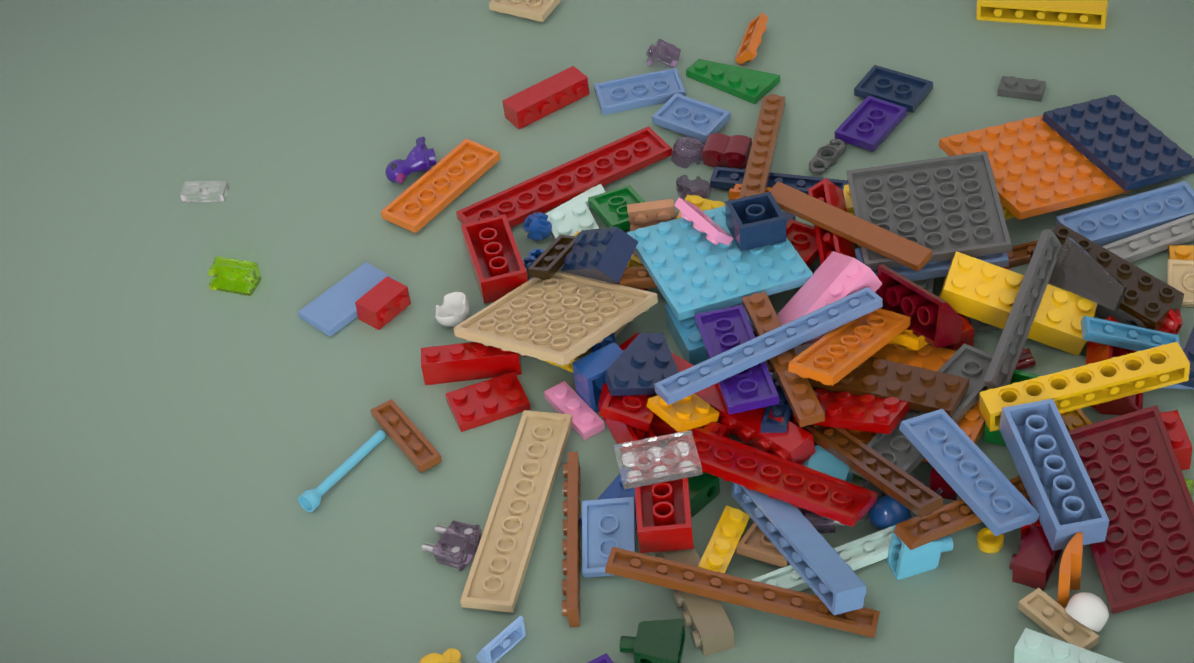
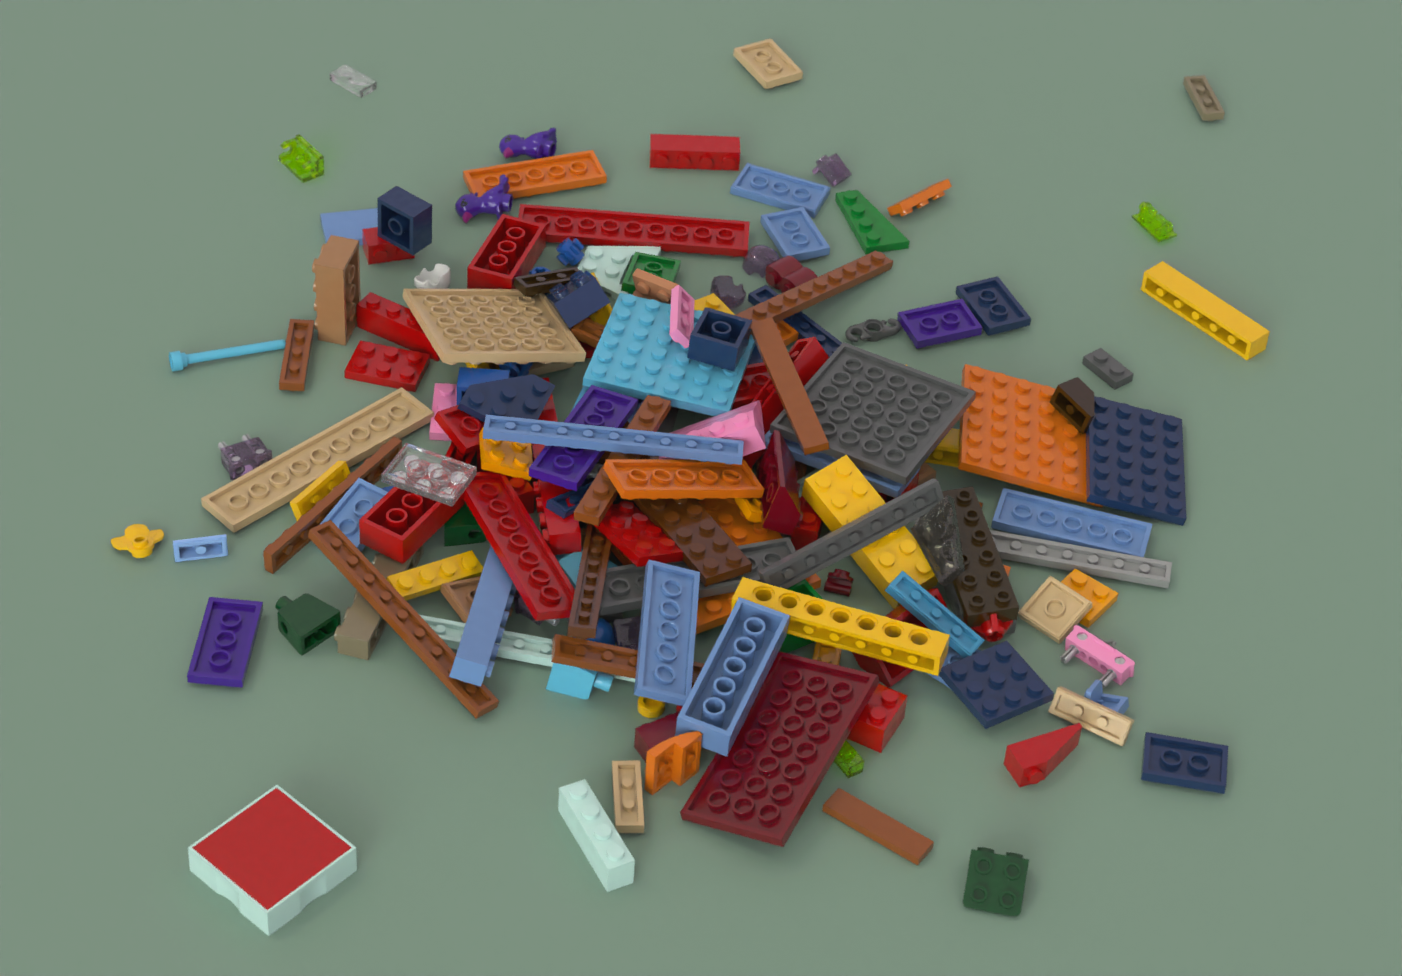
camera: 25 degrees right, 0 degrees up
(395, 272) = (404, 220): none -> dark blue brick
(403, 359) = (337, 289): none -> medium nougat brick
(432, 223) = (491, 202): none -> dark purple animal
(552, 534) = (319, 488): none -> yellow plate
(1047, 123) = (1075, 403): none -> dark brown slope
(1088, 610) = (656, 802): white hair -> none

